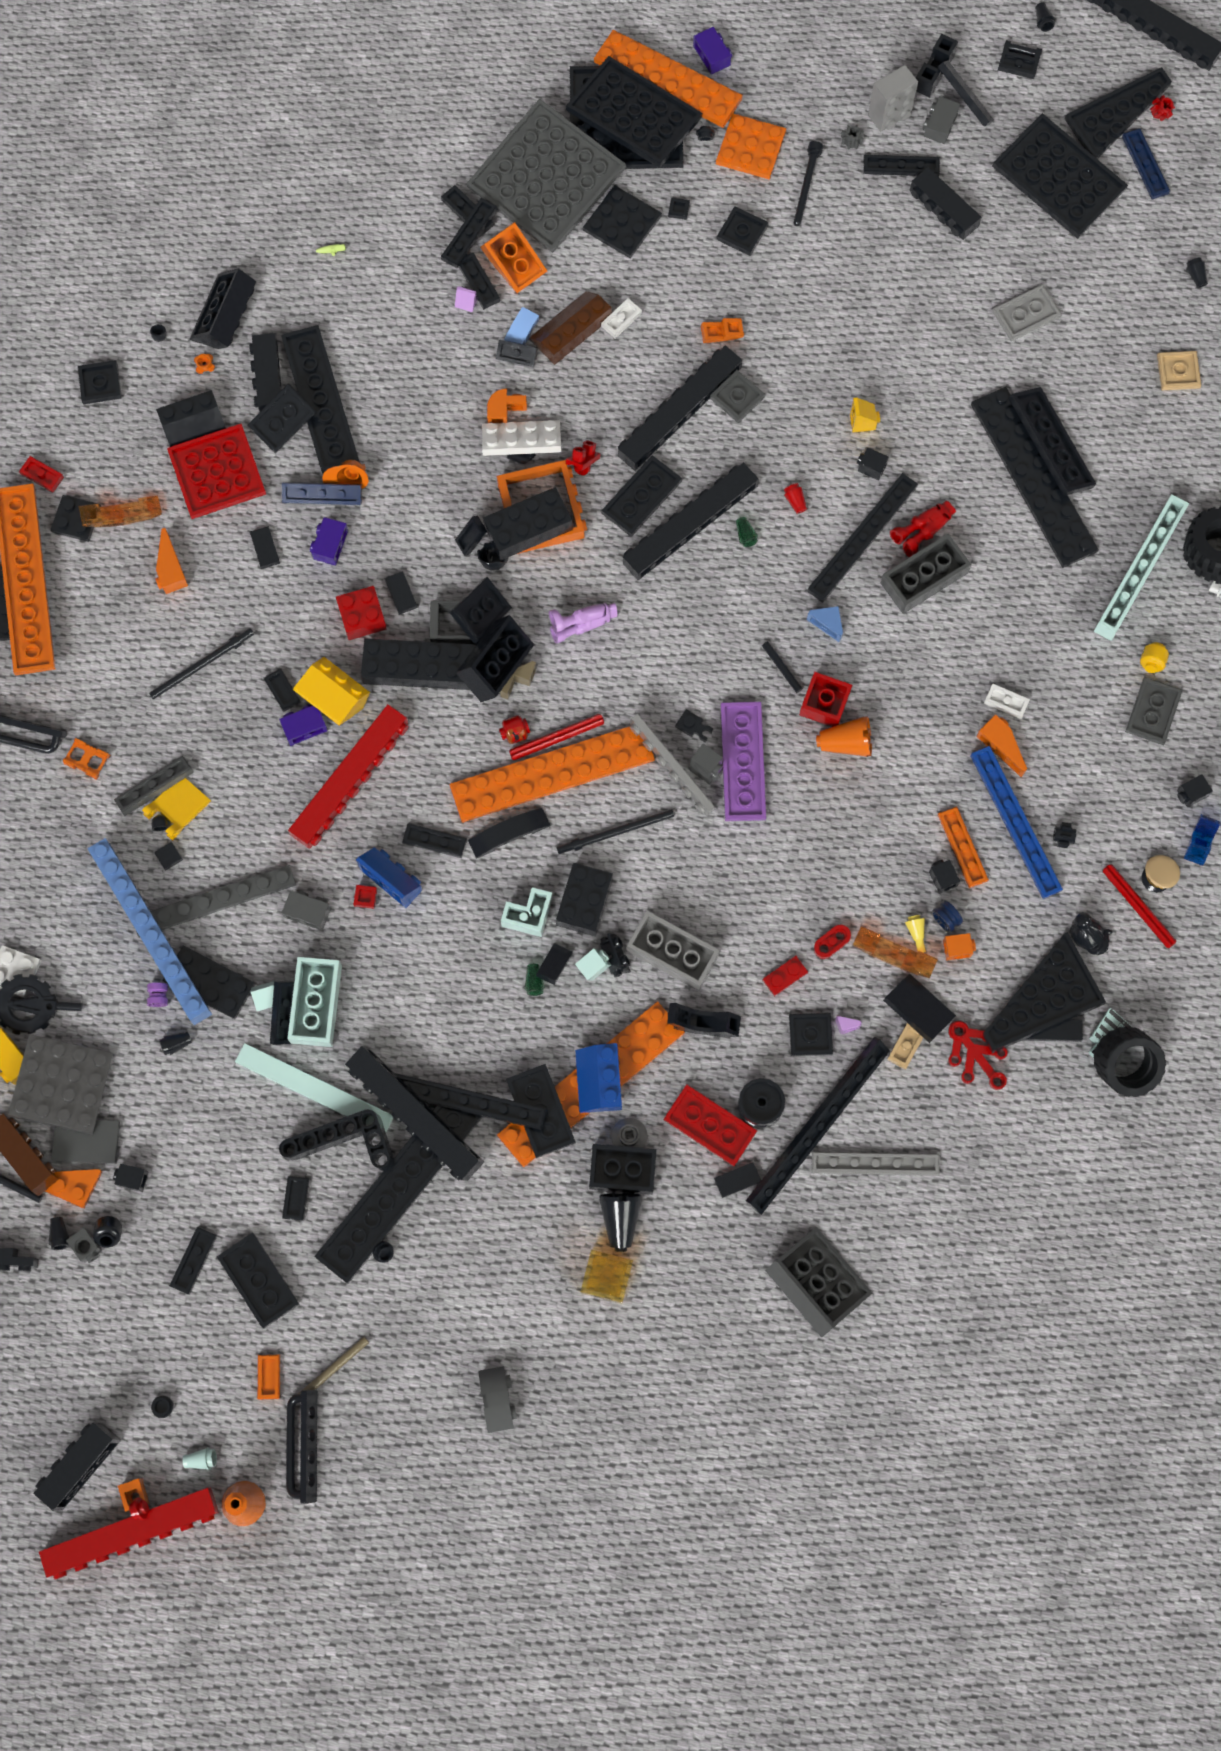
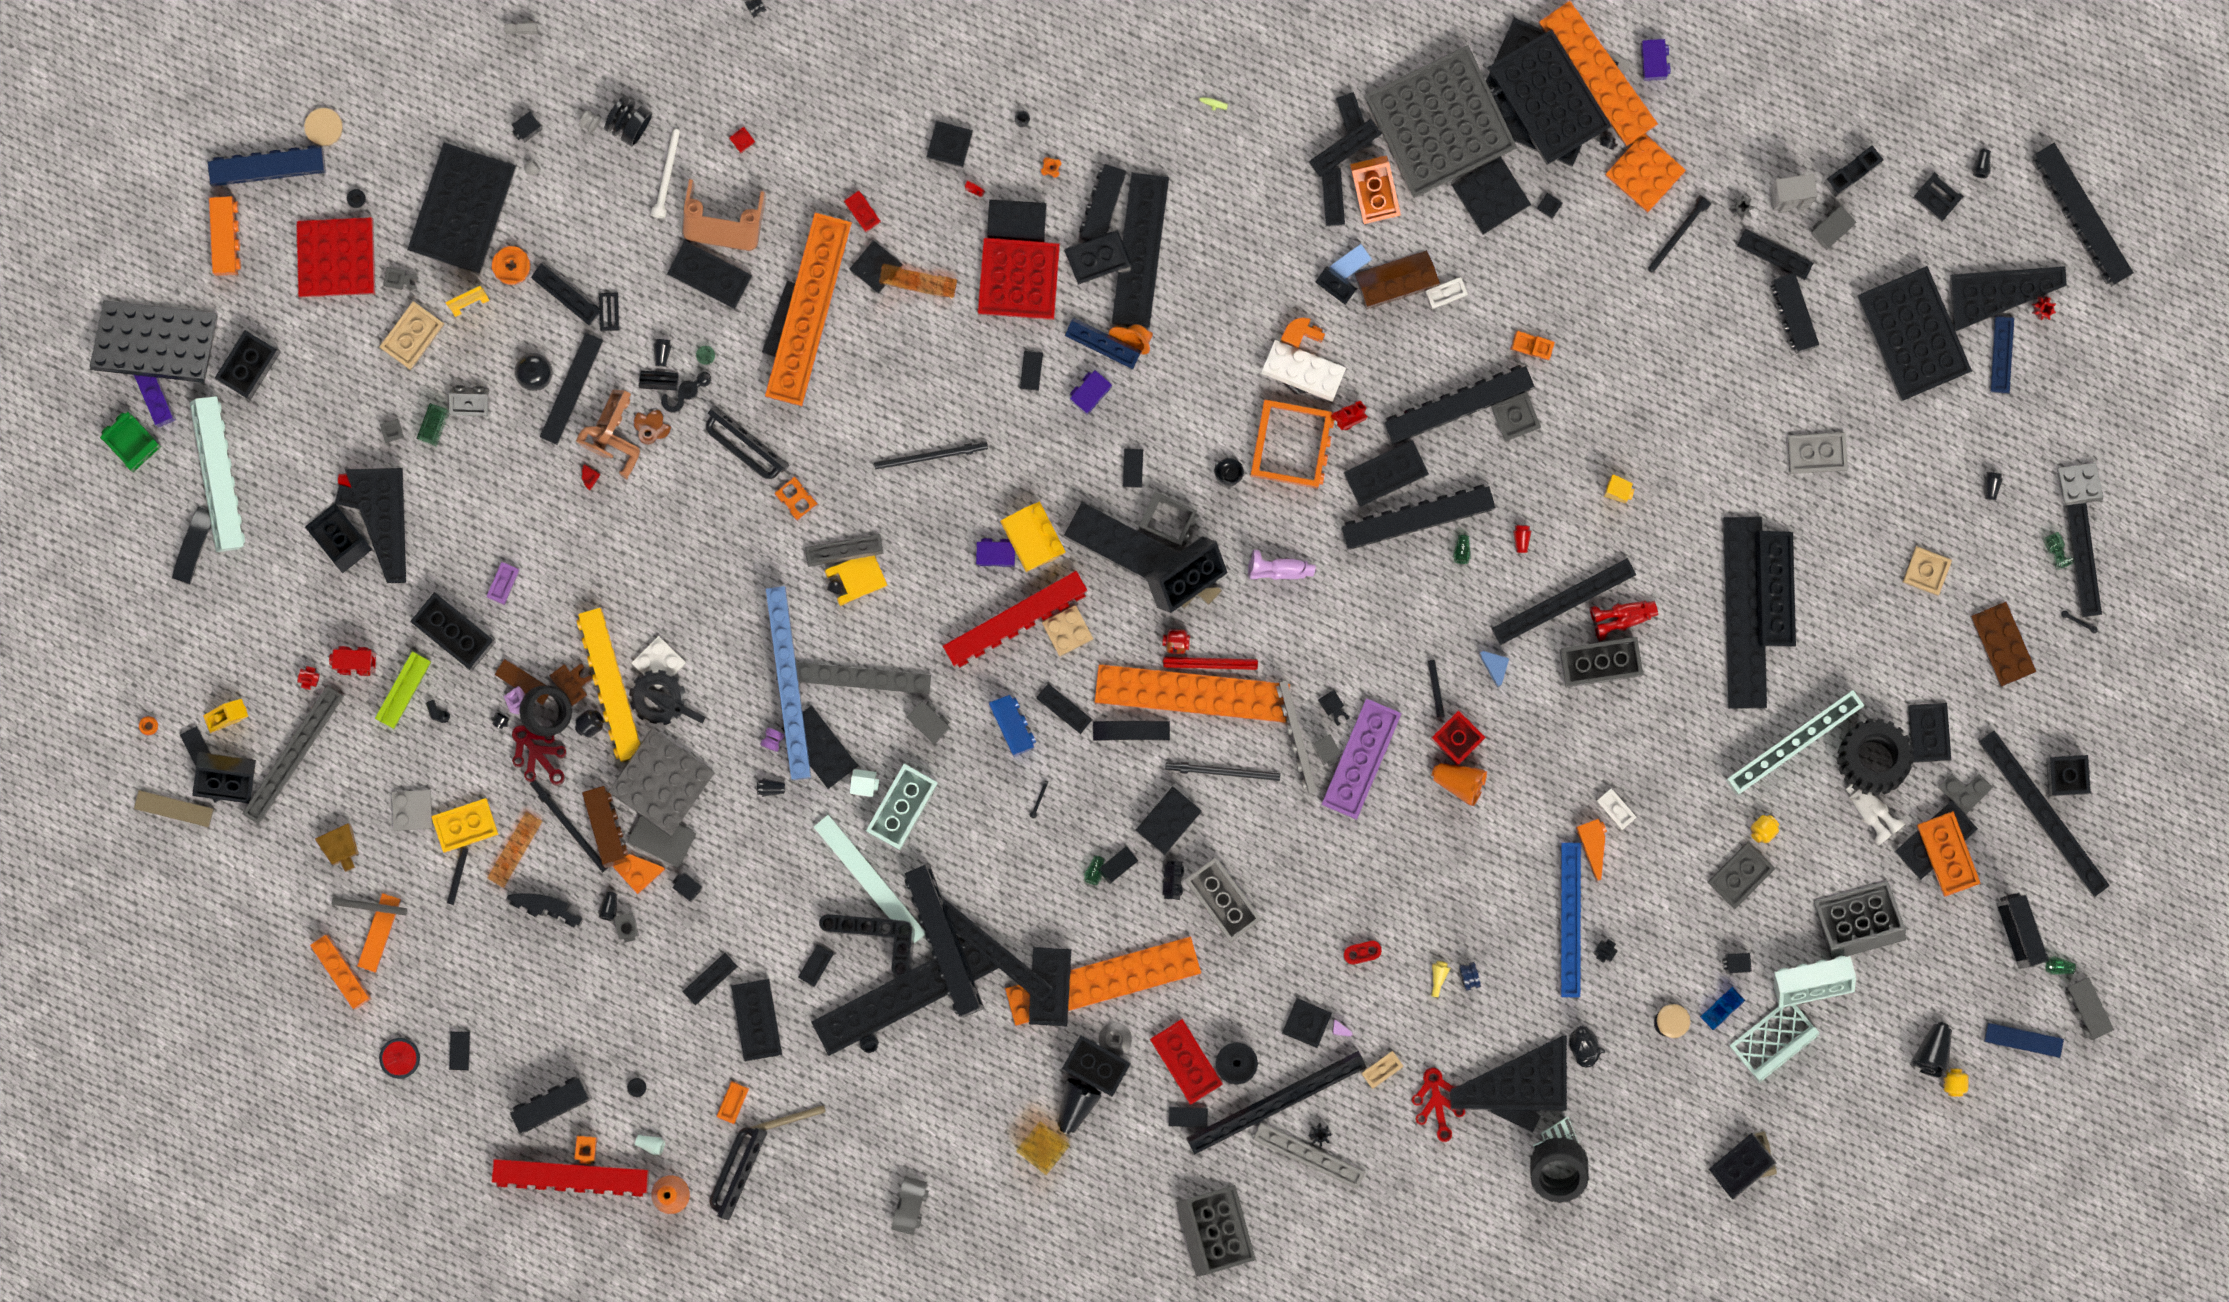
camera: 25 degrees right, 10 degrees up
(107, 1231) = (650, 924): black head -> none
(139, 411) = (974, 189): none -> red tile
(139, 1509) = (587, 1162): red plate -> none
(168, 567) = (938, 356): orange slope -> none
(168, 856) = (831, 619): black tile -> none
(223, 309) = (1089, 122): black slope -> none
(281, 1012) = (870, 804): black tile -> none
(282, 690) = (990, 511): black tile -> none
(361, 613) = (1089, 473): red brick -> none
(365, 896) = (983, 732): red plate -> none
(405, 767) = (1067, 631): none -> tan plate
(449, 953) = (1033, 814): none -> black hinge
(465, 299) = (1313, 211): lavender slope -> none
(471, 535) = (1217, 445): black tile -> none
(480, 609) = (1194, 520): black tile -> none
(528, 523) = (1270, 461): black brick -> none
(529, 918) = (1115, 817): light aqua brick -> none
(593, 963) = (1151, 880): light aqua brick -> none
(598, 1078) = (1110, 981): blue slope -> none
(703, 1022) = (1220, 972): black arch -> none
(742, 231) = (1596, 256): black plate -> none
(785, 976) = (1309, 963): red plate -> none
(872, 463) = (1605, 536): black brick -> none
(879, 1130) = (1316, 1139): none -> black gear
(894, 954) = (1410, 986): clear orange slope -> none
(919, 1008) = (1408, 1043): black tile -> none
(944, 876) = (1485, 939): black brick -> none
(958, 946) = (1467, 1006): orange brick -> none
(963, 847) = (1514, 920): orange tile -> none
(966, 93) = (1867, 213): black tile -> none
(1139, 906) = (1640, 1041): red axle -> none

